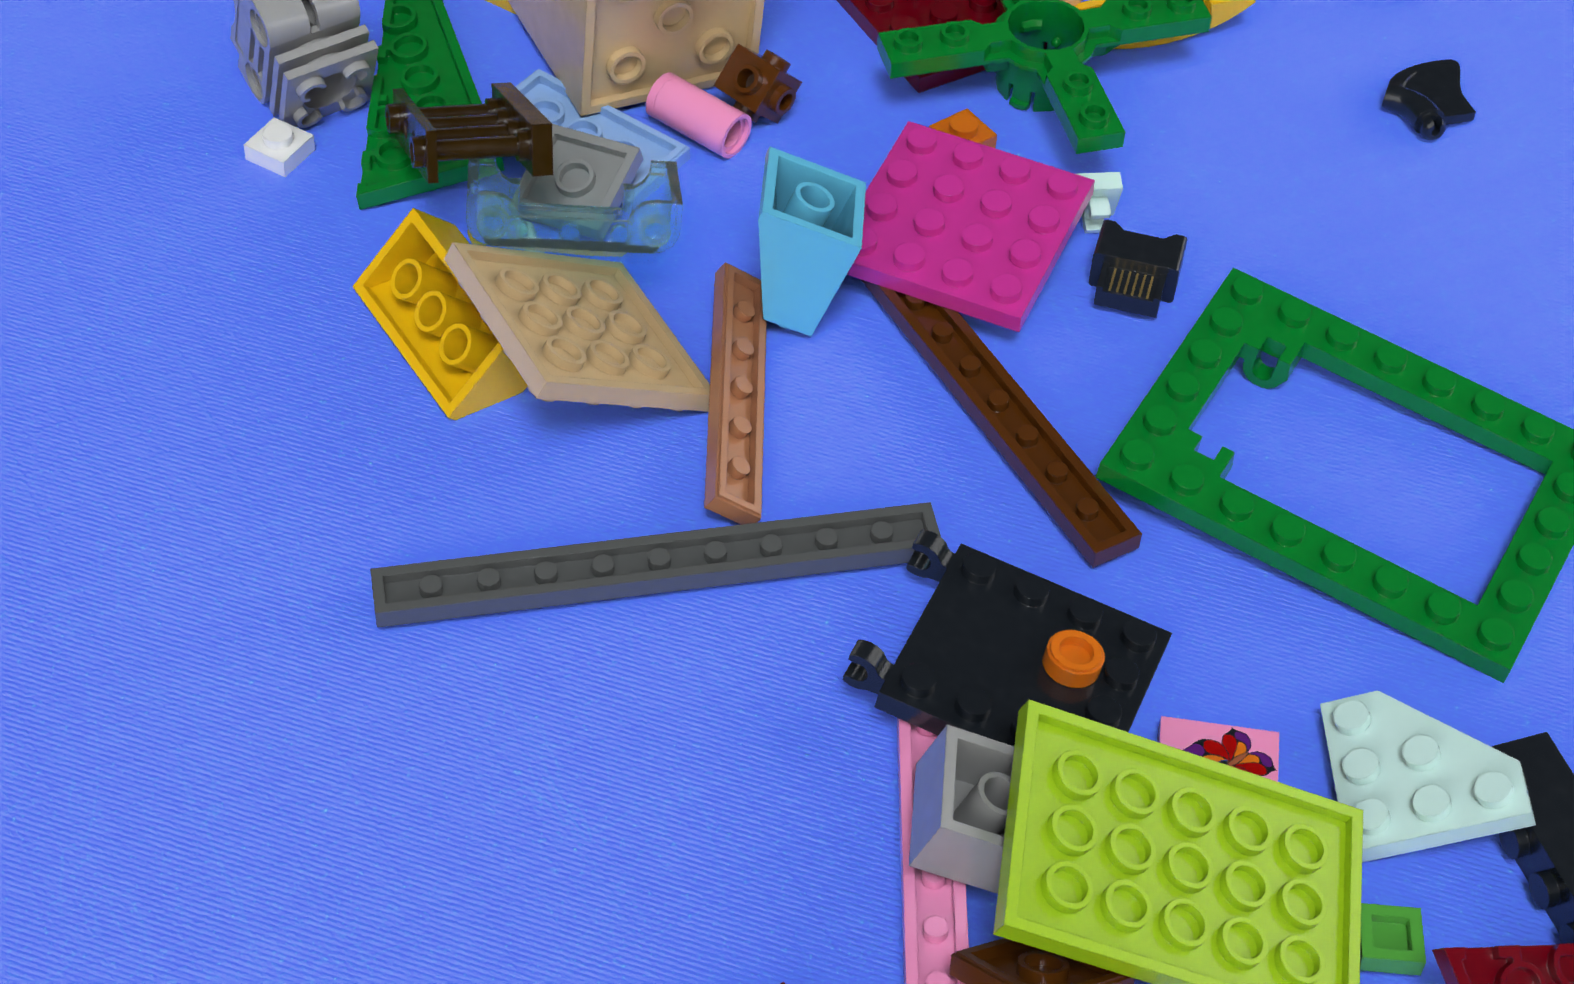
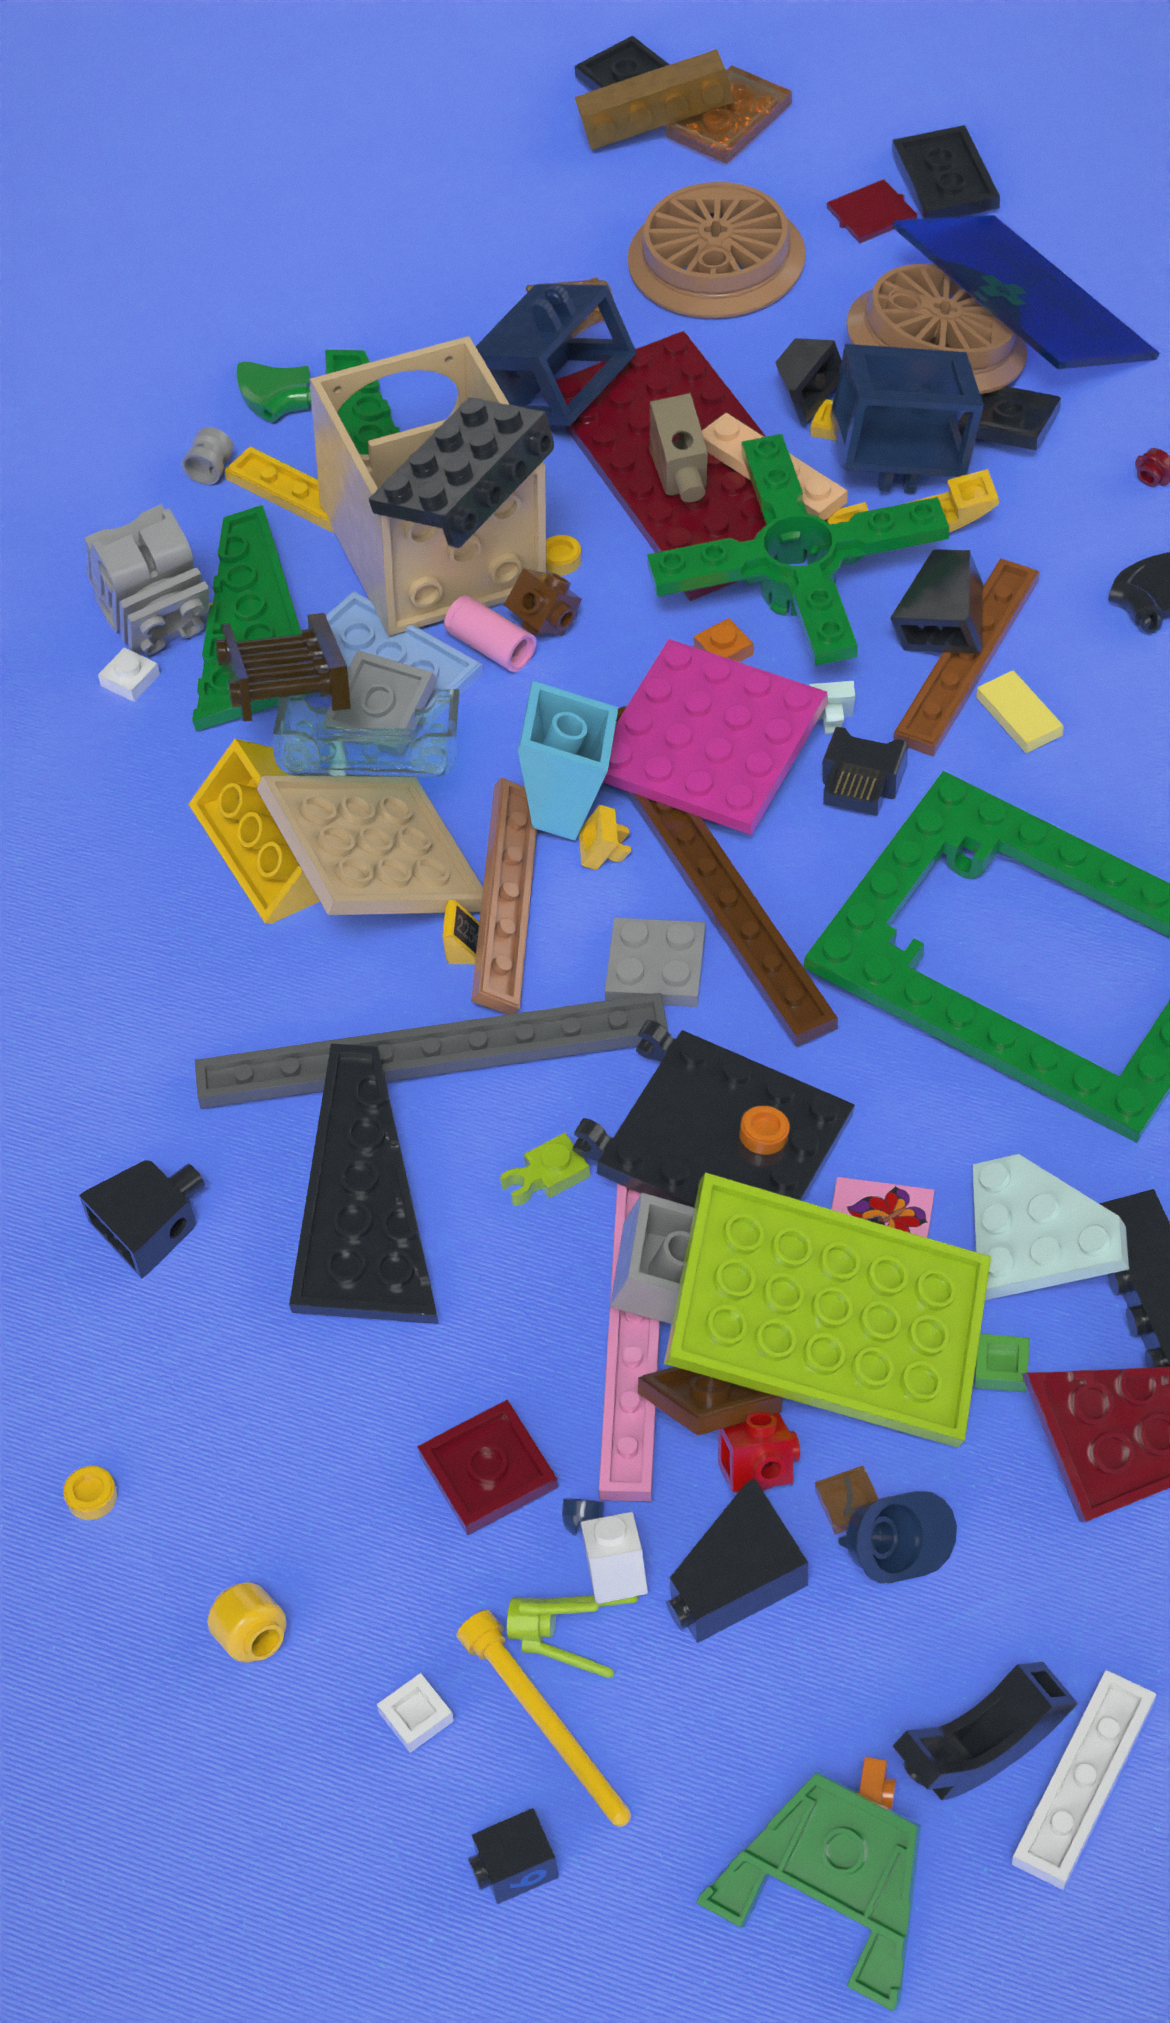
camera: 10 degrees right, 5 degrees up
(309, 749) = (143, 1212): none -> black torso
(583, 762) = (359, 1221): none -> black wing
(686, 435) = (459, 934): none -> yellow slope
(777, 38) = (563, 554): none -> yellow tile
(810, 702) = (548, 1168): none -> lime plate
(845, 333) = (602, 839): none -> yellow tile
(919, 465) = (656, 958): none -> light grey plate
(1205, 102) = (942, 606): none -> black slope
(1234, 157) = (958, 673): none -> dark orange tile
(1301, 214) = (1019, 711): none -> light yellow tile

